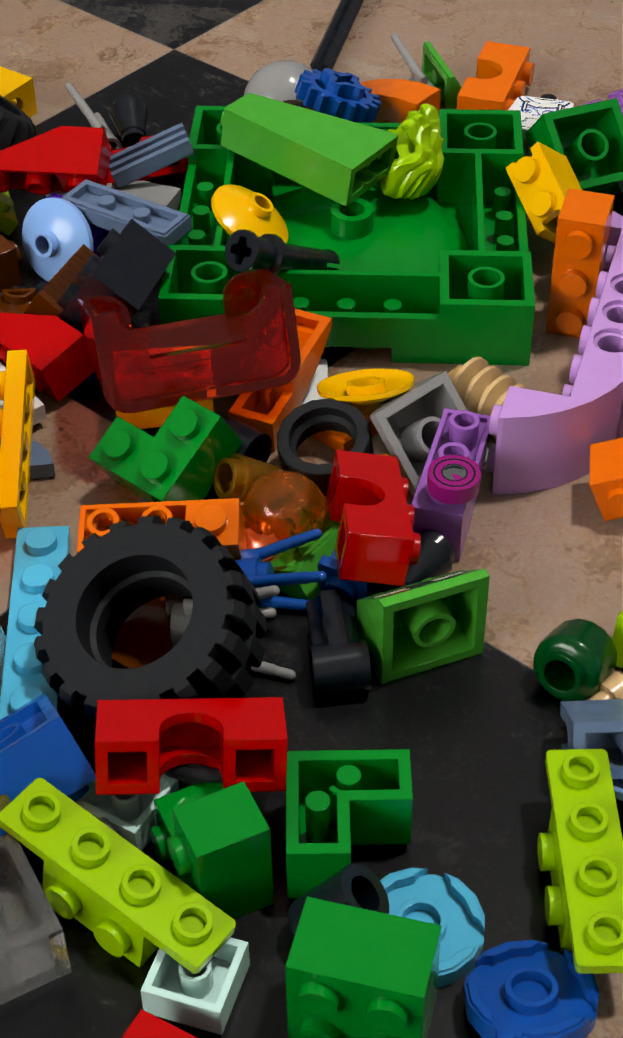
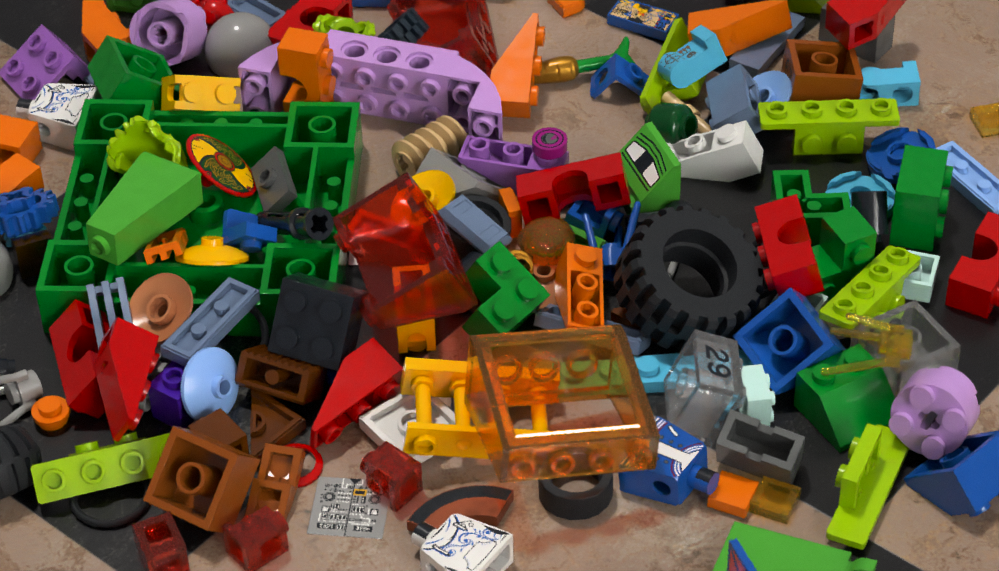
camera: 90 degrees left, 0 degrees up
(159, 185) = (162, 304): none -> nougat dish
(264, 181) = (172, 240): none -> orange tile
(297, 229) = (244, 232): none -> blue bracket
(301, 426) = (473, 224): none -> sand blue tile
(394, 257) = (274, 181): none -> dark grey plate
(401, 206) = (220, 166): none -> shield
(503, 713) = (720, 154): none -> white slope

